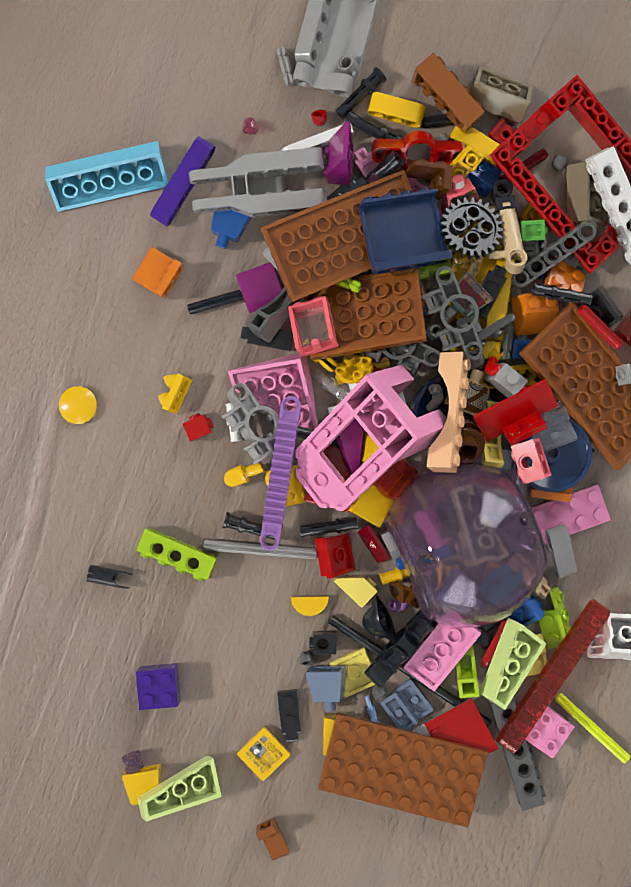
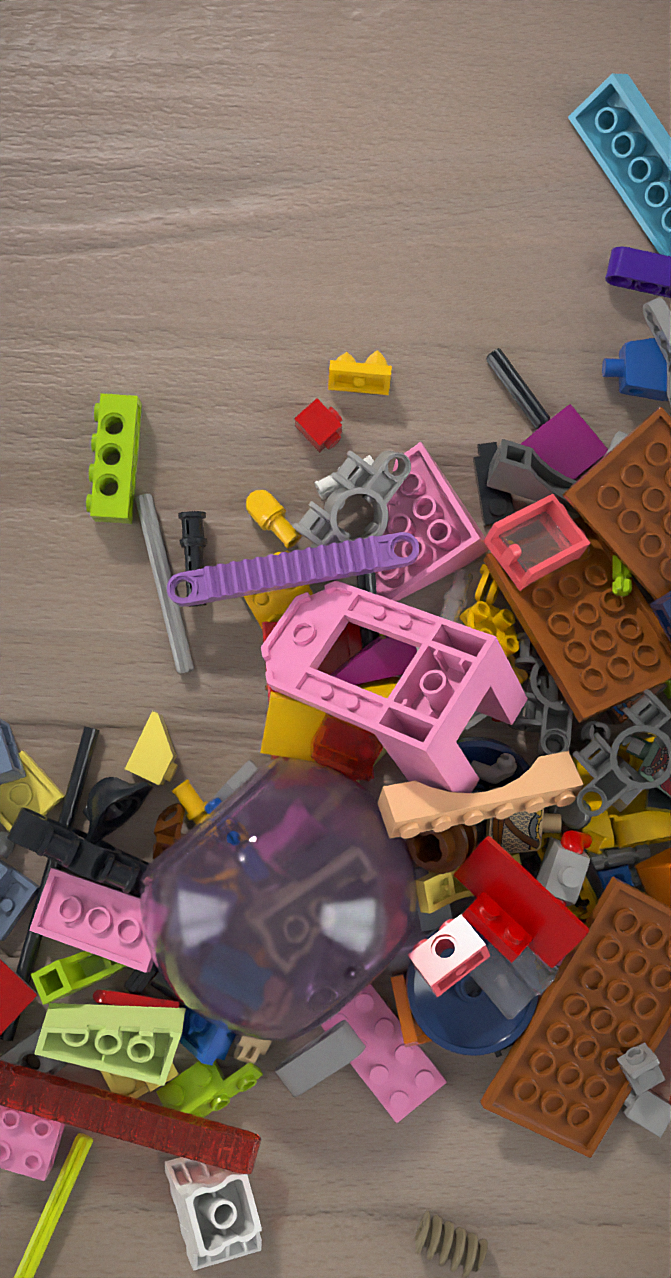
camera: 70 degrees right, 5 degrees down
(78, 405) = (291, 239): yellow dish -> none
(104, 576) = (46, 363): black piece -> none
(158, 272) = (531, 290): orange bracket -> none
(307, 659) = (17, 712): dark grey hinge -> none
(309, 604) = (103, 688): yellow tile -> none
(328, 527) = (239, 687): black pin -> none
(330, 636) = (63, 736): black brick -> none
(335, 555) = (194, 701): red bracket -> none
(373, 544) = (231, 755): dark red slope -> none
(397, 606) = (145, 825): medium lavender arm -> none
(494, 330) = (631, 825): dark grey hinge -> none

